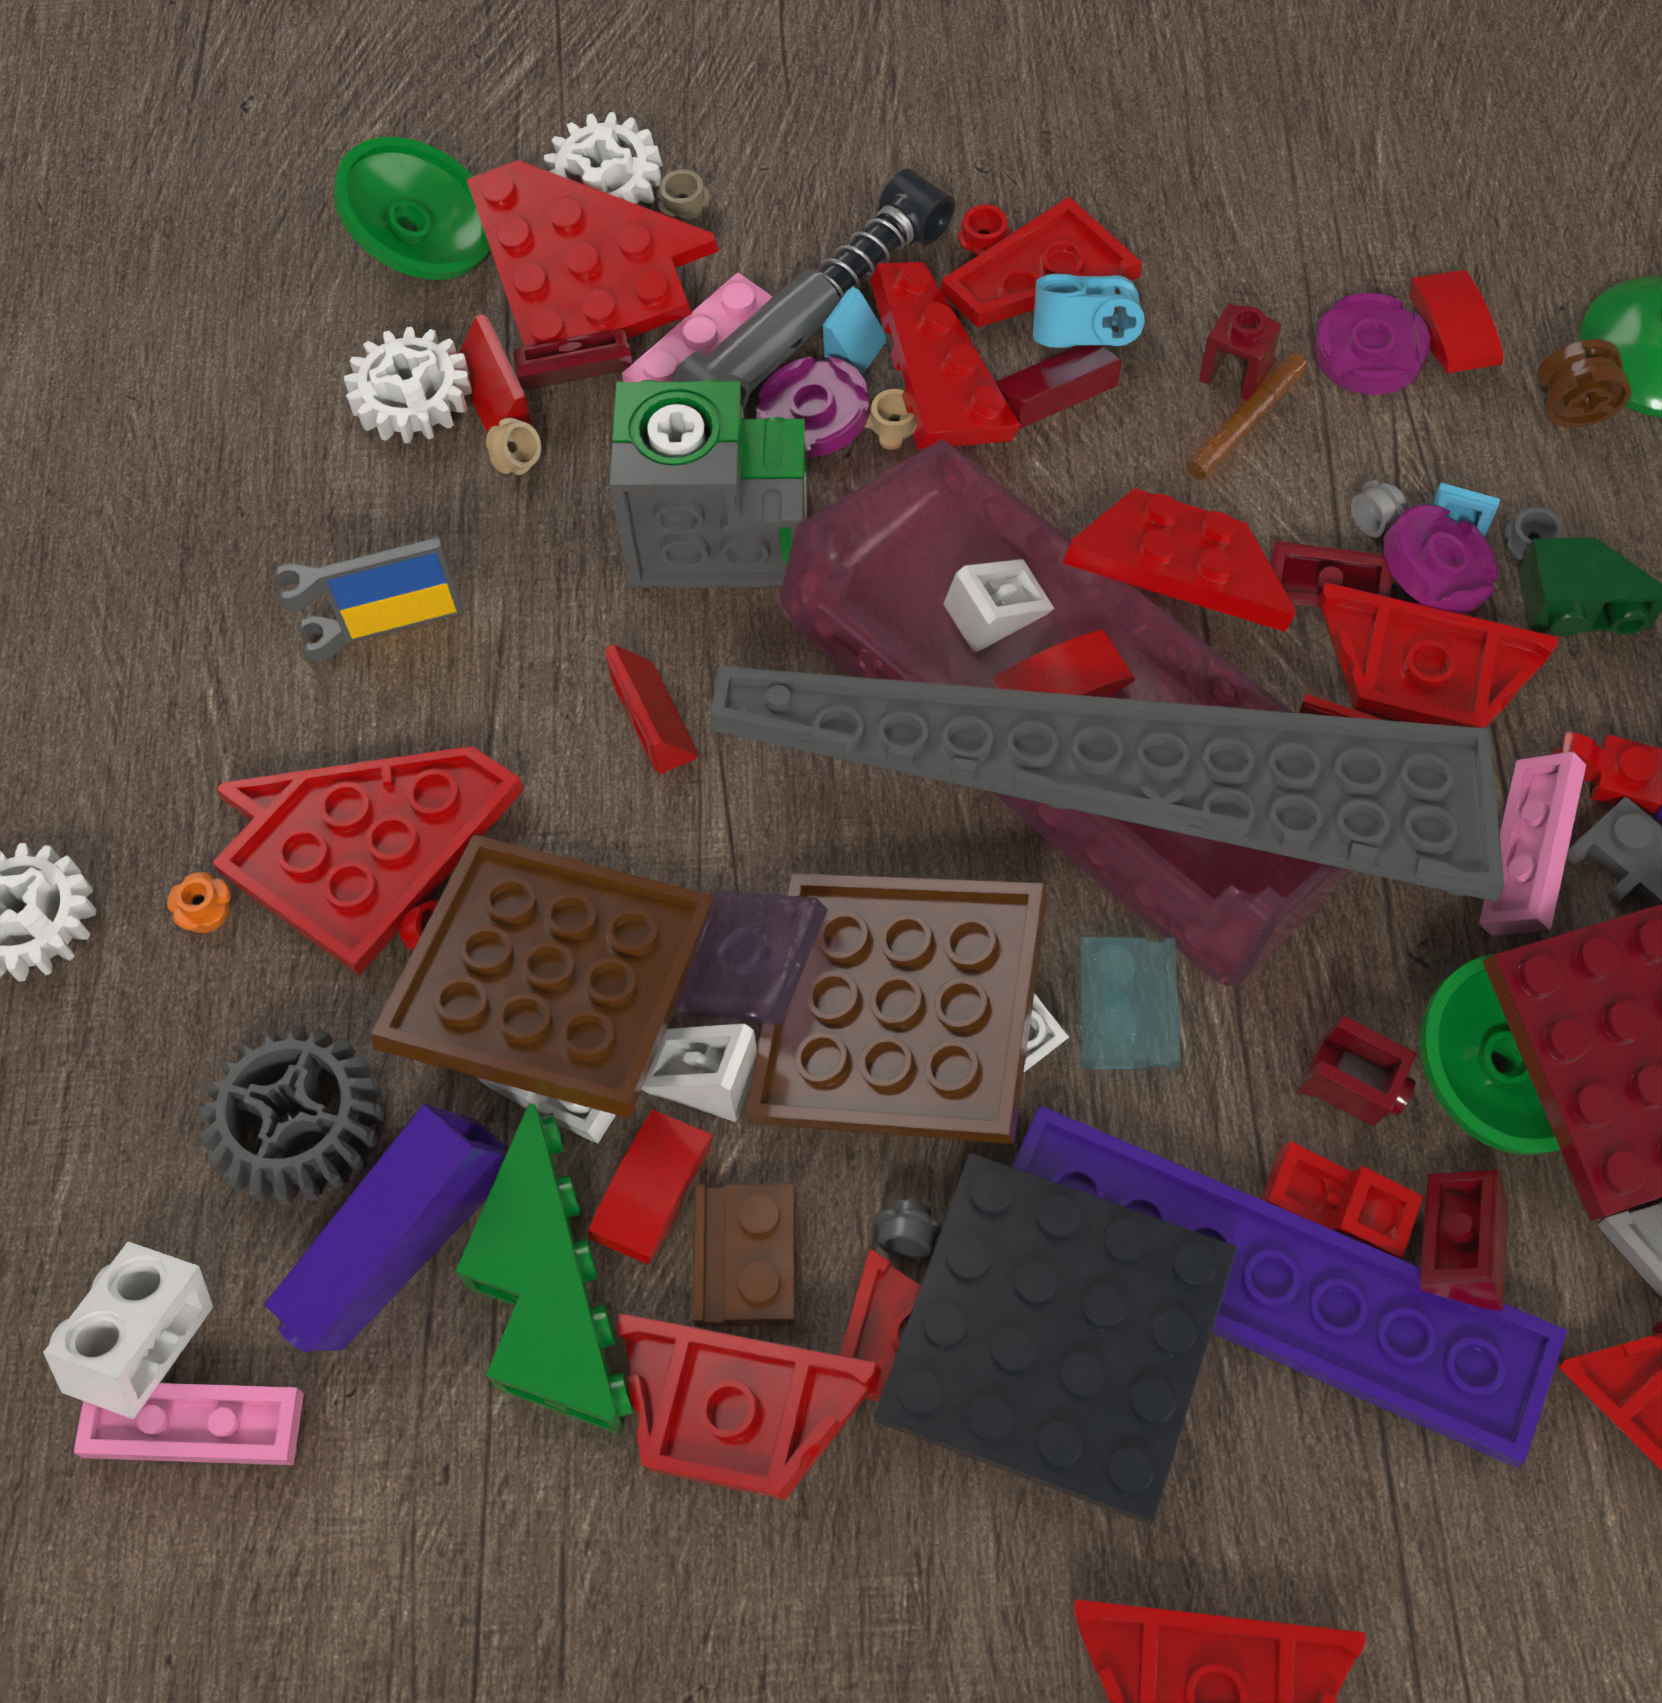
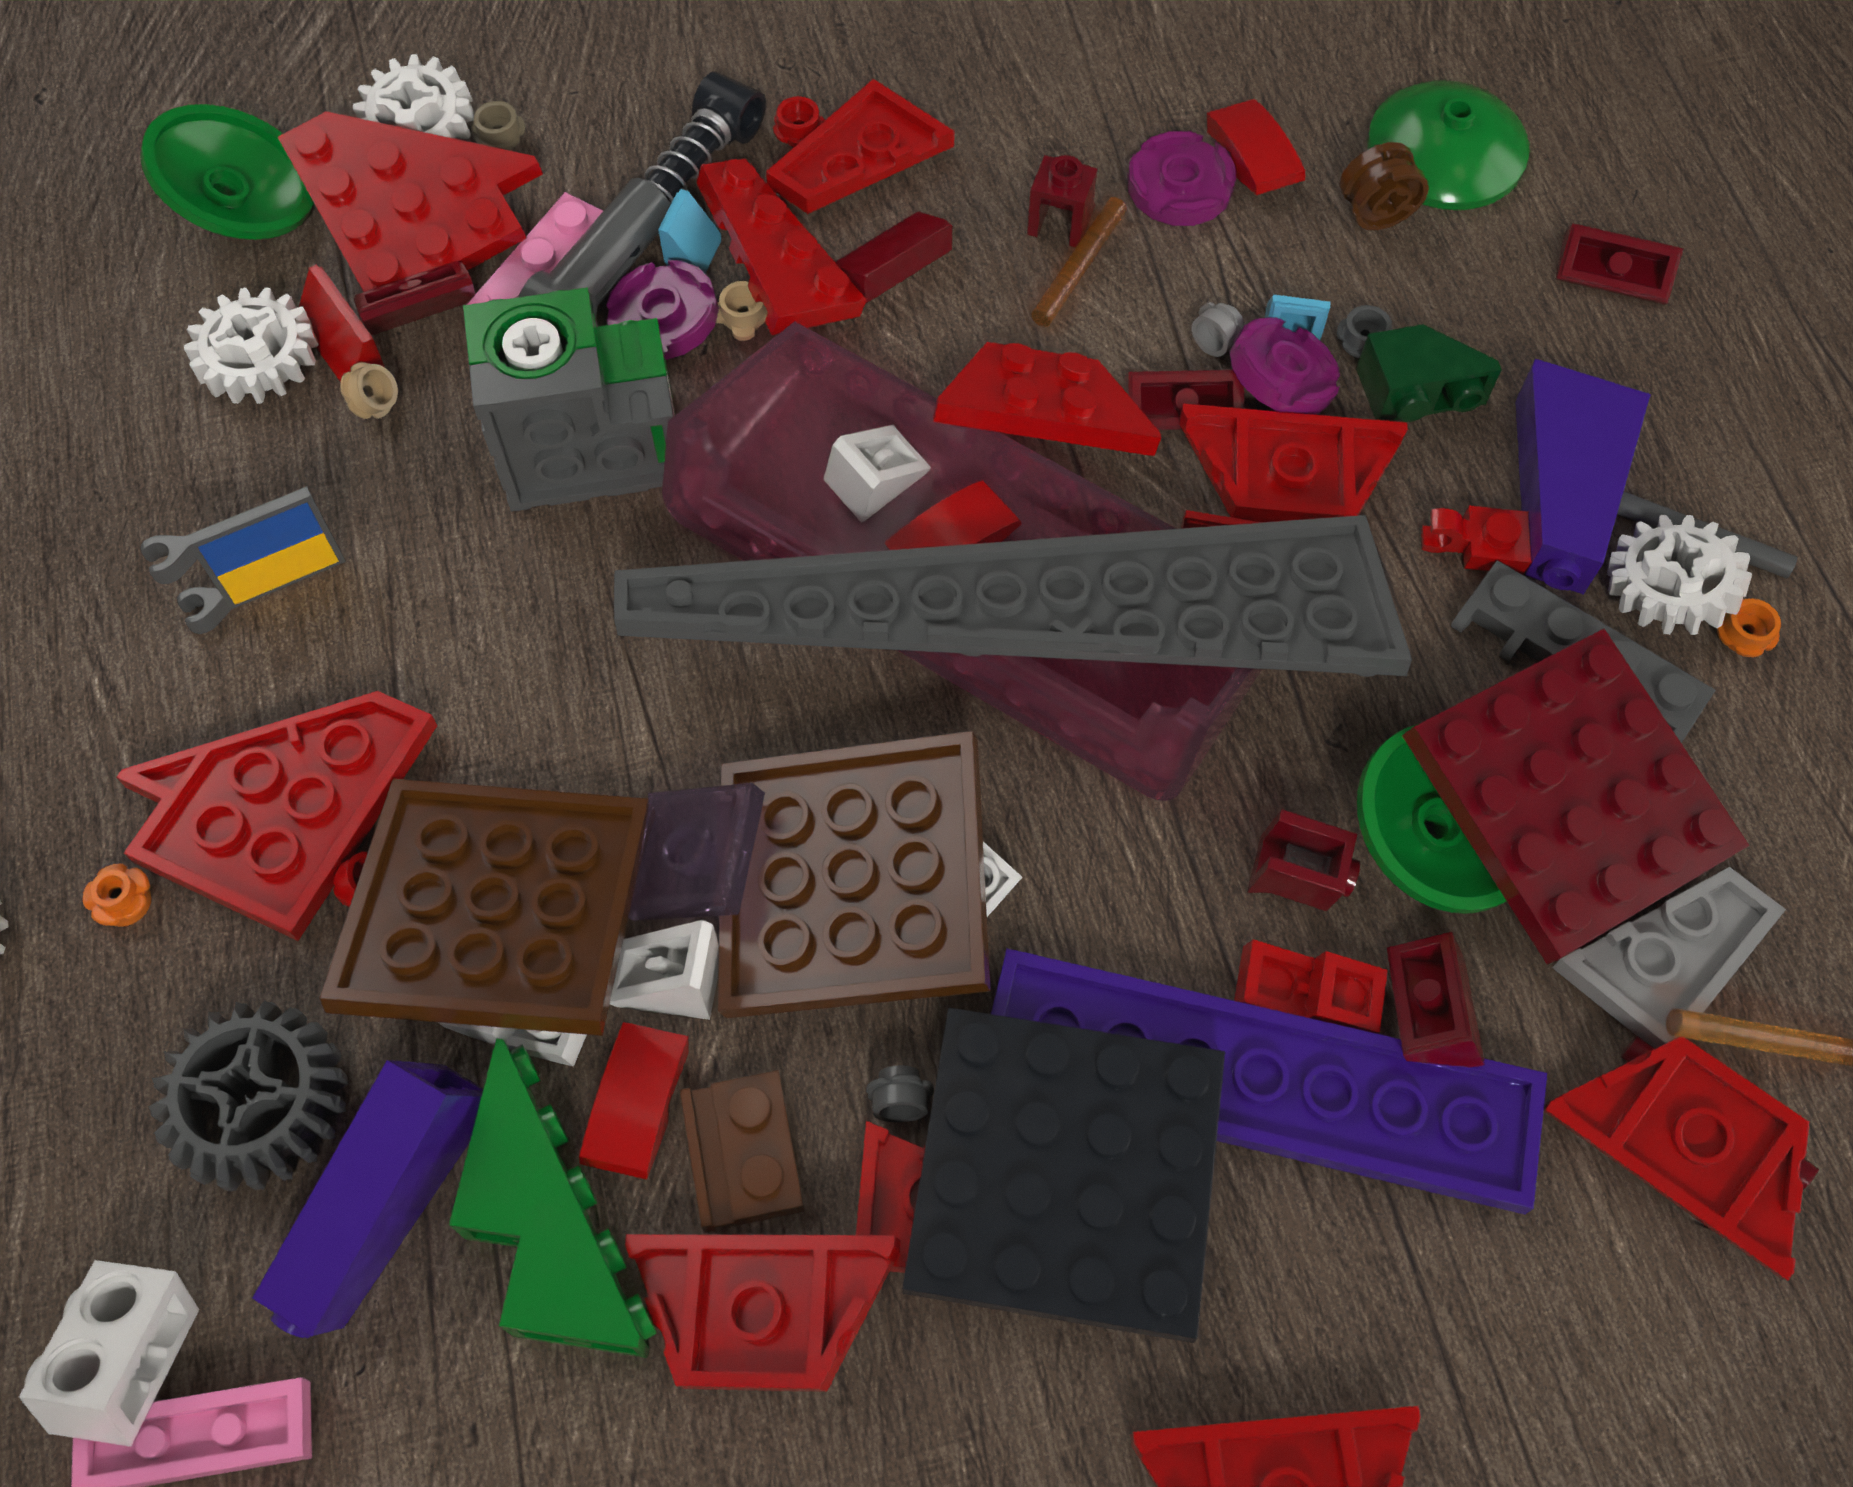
camera: 15 degrees left, 0 degrees up
(650, 709) = (551, 626): red slope -> none
(1081, 311) = (902, 180): medium azure piece -> none
(1128, 1003) = (1072, 834): clear light blue plate -> none
(1535, 843) = (1425, 600): bright pink plate -> none

